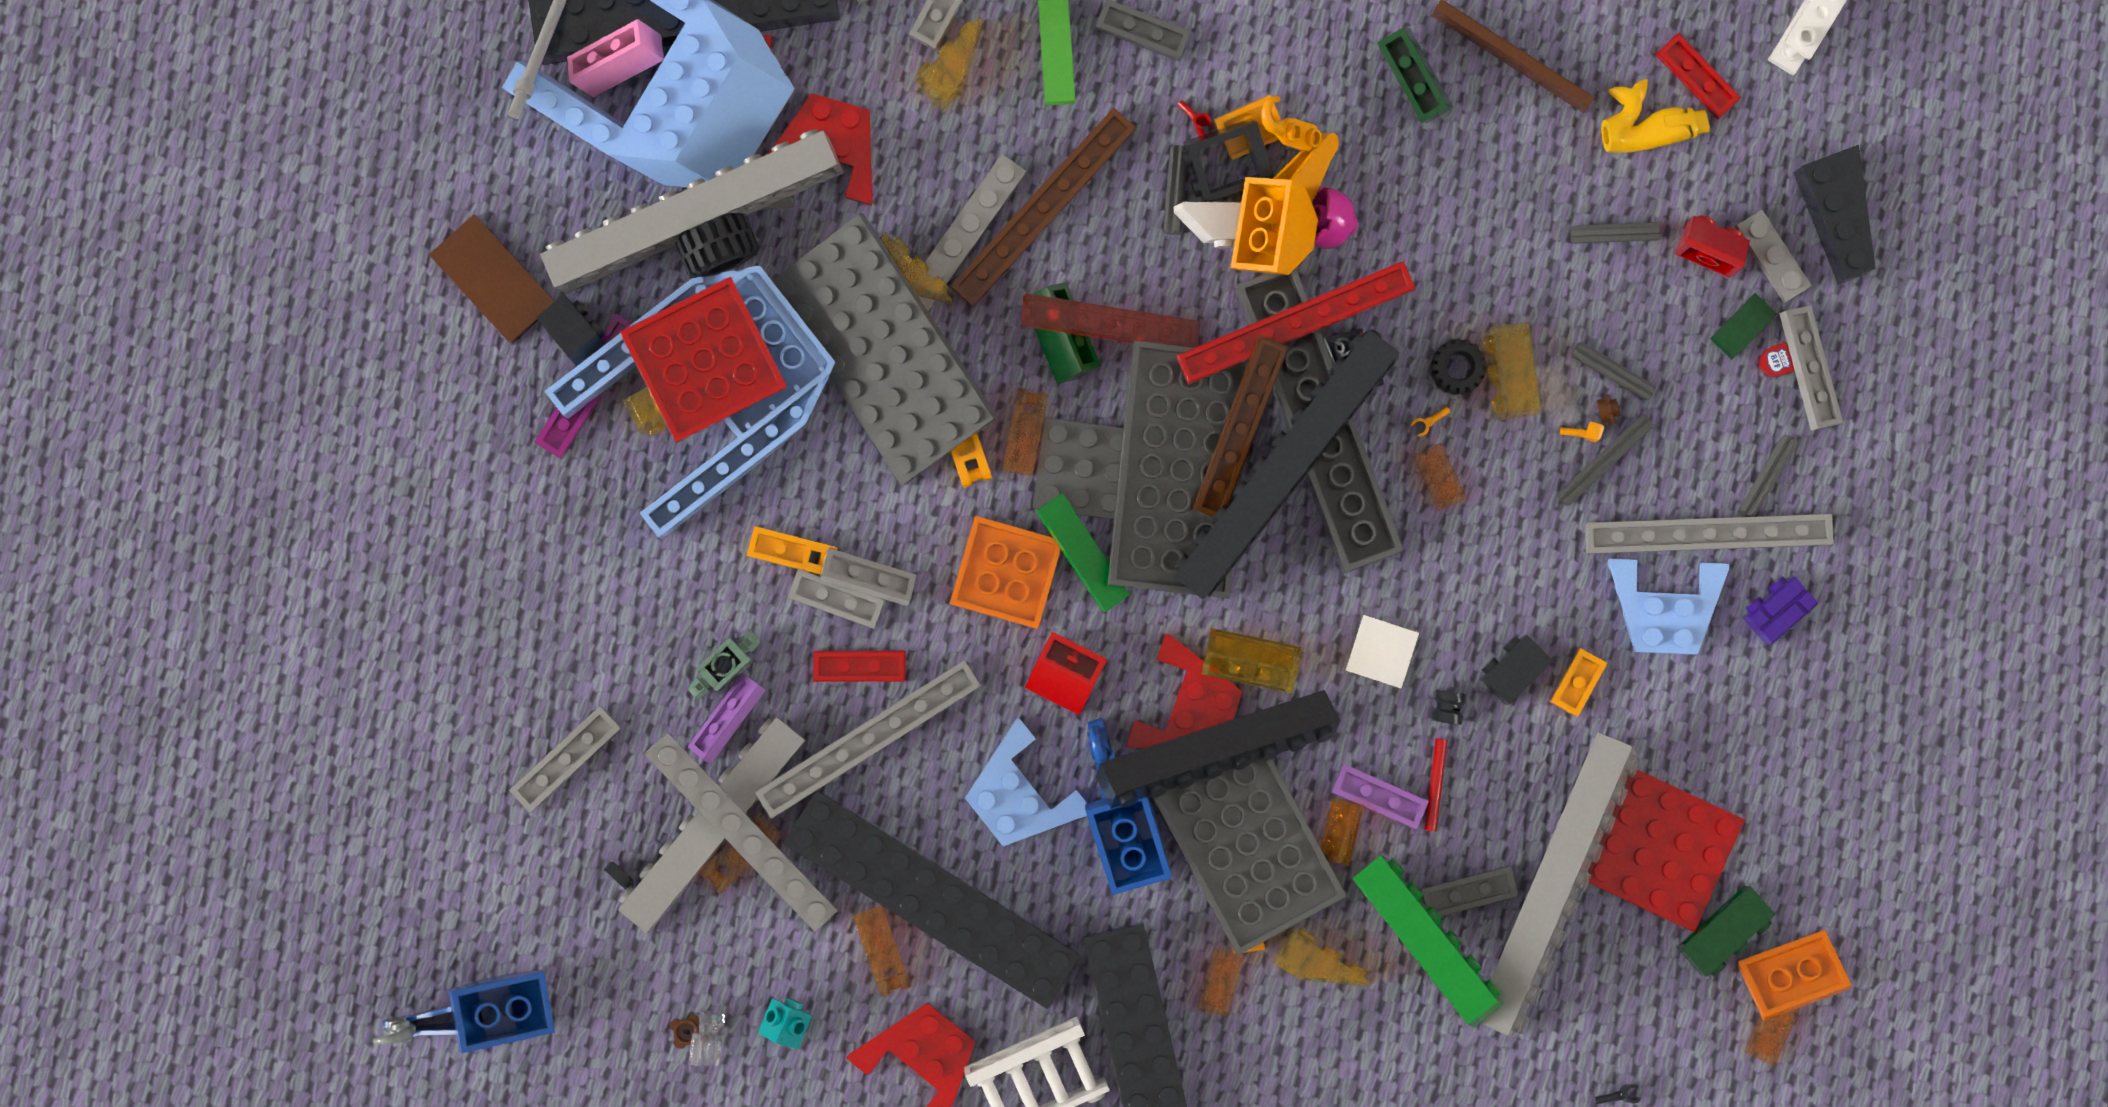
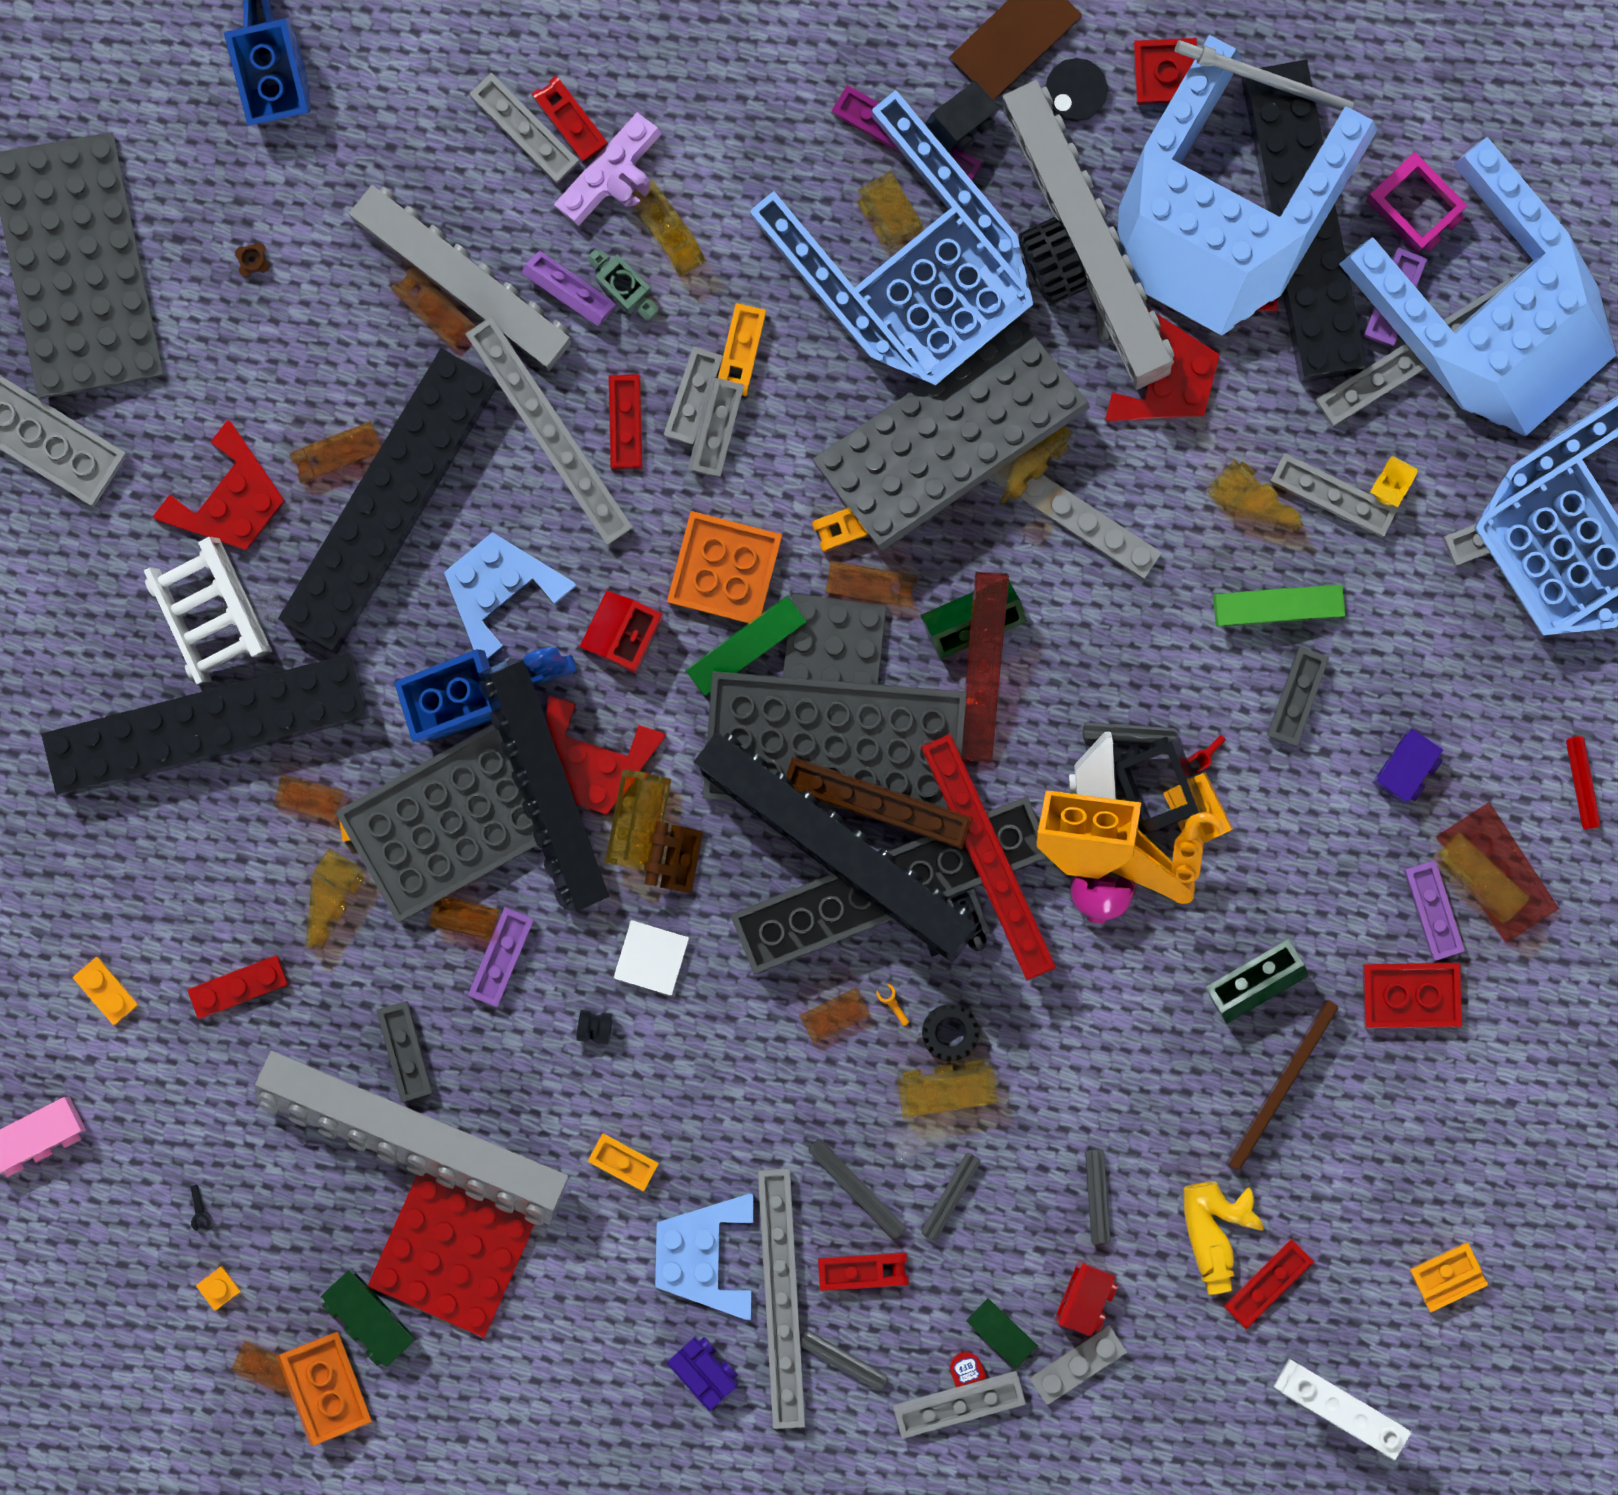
camera: 90 degrees right, 0 degrees up
(531, 139) = (1159, 69): none -> red plate
(546, 219) = (1077, 89): none -> black tile
(558, 714) = (570, 120): none -> red plate
(612, 673) = (612, 172): none -> lavender plate
(615, 58) = (1245, 150): bright pink brick -> none
(618, 875) = (407, 185): black tile -> none
(670, 621) = (669, 231): none -> clear yellow slope
(703, 359) = (932, 249): red plate -> none
(707, 1043) = (239, 280): clear plate -> none
(740, 831) = (452, 305): light grey plate -> none
(785, 1023) = (261, 357): teal brick -> none
(1043, 207) = (1106, 597): reddish brown plate -> none
(1290, 621) = (680, 859): none -> reddish brown plate
(1404, 1055) = (237, 987): none -> red plate
(1428, 941) = (351, 1005): green brick -> none
(1436, 784) = (514, 1016): red bar -> none
(1515, 669) = (635, 1095): black brick -> none
(1593, 432) = (885, 1176): light orange hand -> none
(1608, 409) = (909, 1190): reddish brown plate -> none
(1684, 456) = (862, 1271): none -> red plate
(1695, 1077) = (218, 1288): none -> light orange plate
(1839, 211) = (1130, 1432): black wedge -> none

